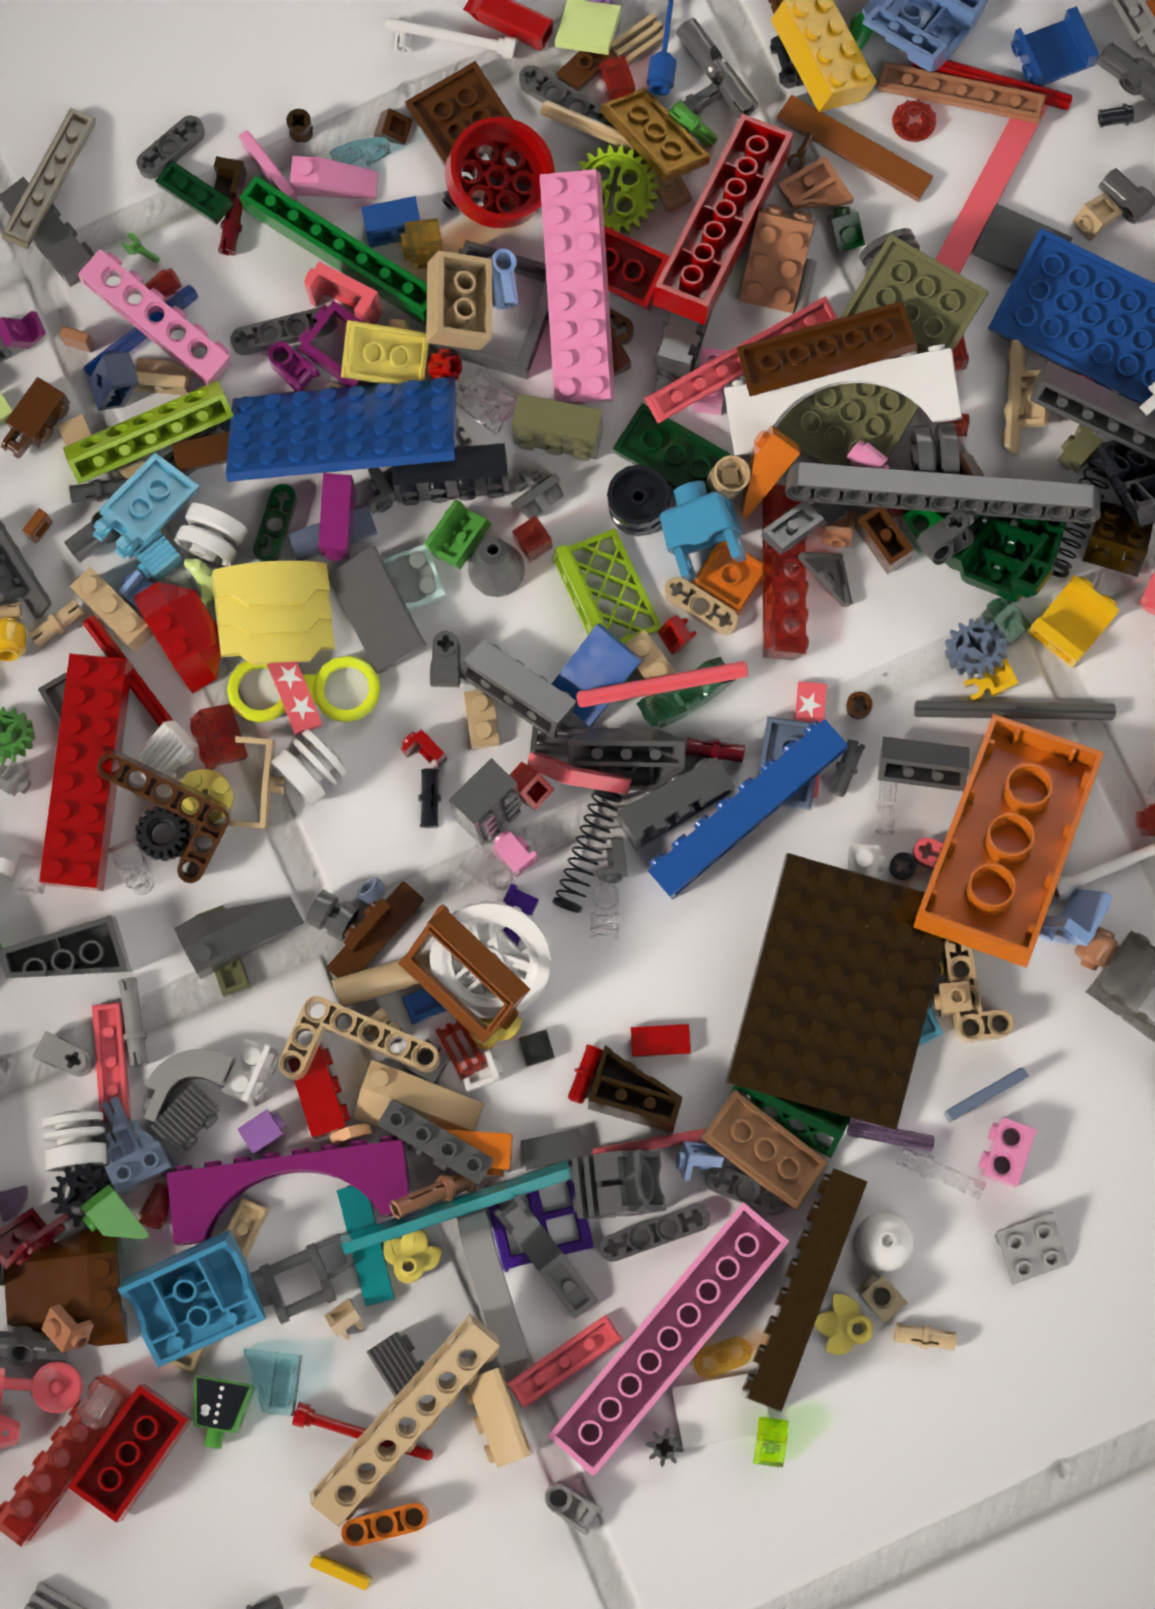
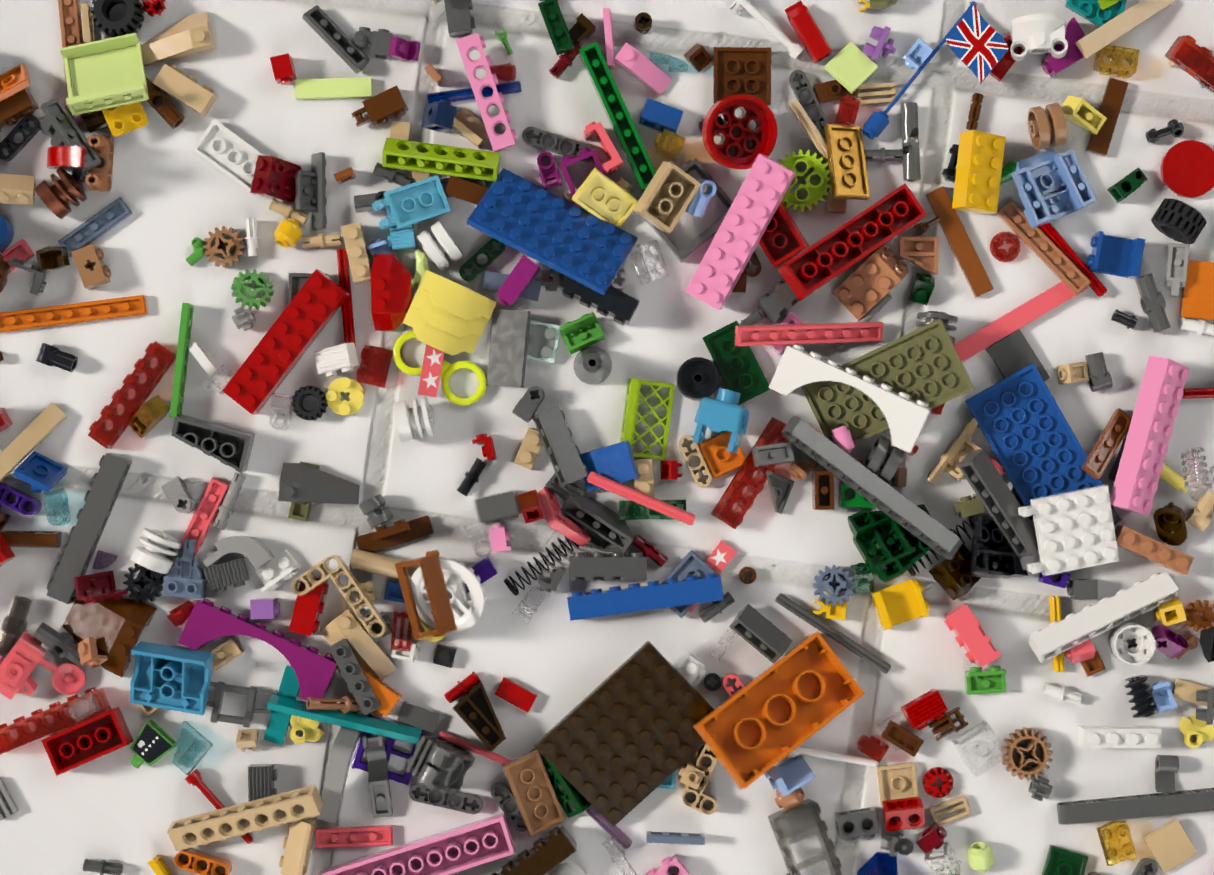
camera: 25 degrees right, 10 degrees up
(112, 1216) = (152, 606): bright green slope -> none
(173, 803) = (322, 393): reddish brown beam -> none
(269, 783) = (386, 414): tan piece -> none
(350, 1133) = (313, 640): light nougat tile -> none
(371, 890) = (406, 510): sand blue tile -> none
(444, 364) = (637, 226): red gear -> none
(532, 539) = (622, 363): clear red brick -> none
(548, 487) = (642, 332): dark grey hips -> none
(557, 427) = (677, 306): olive brick -> none
(693, 124) = (873, 168): bright green axle -> none
(697, 1155) = (494, 772): light blue bracket -> none
(729, 476) = (756, 399): tan wheel -> none
(769, 461) = (786, 405): orange slope -> none
(826, 348) = (859, 363): reddish brown plate -> none
(944, 539) = (856, 514): dark grey piece -> none

